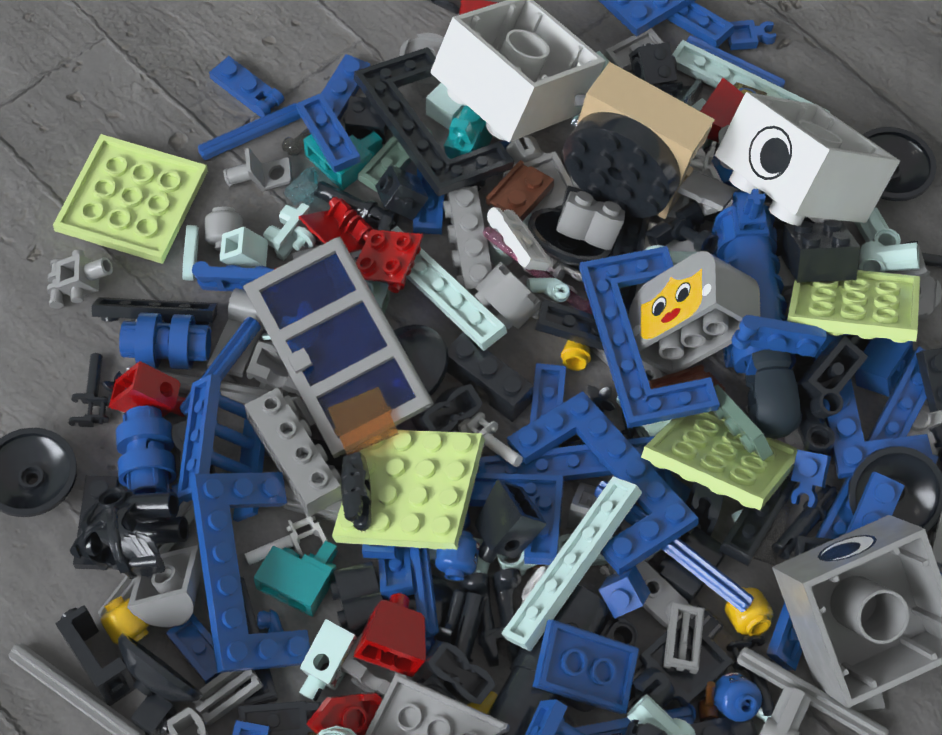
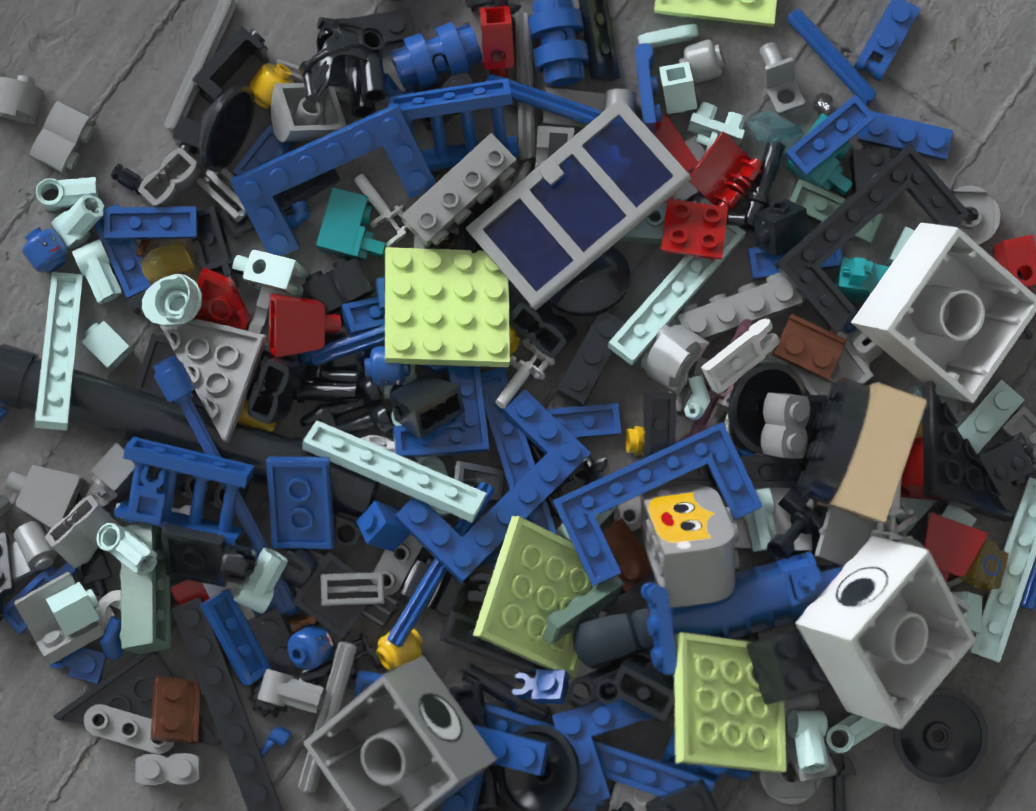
camera: 80 degrees right, 20 degrees up
(356, 490) = (426, 258): black hinge -> none
(363, 421) = (501, 247): clear orange piece -> none

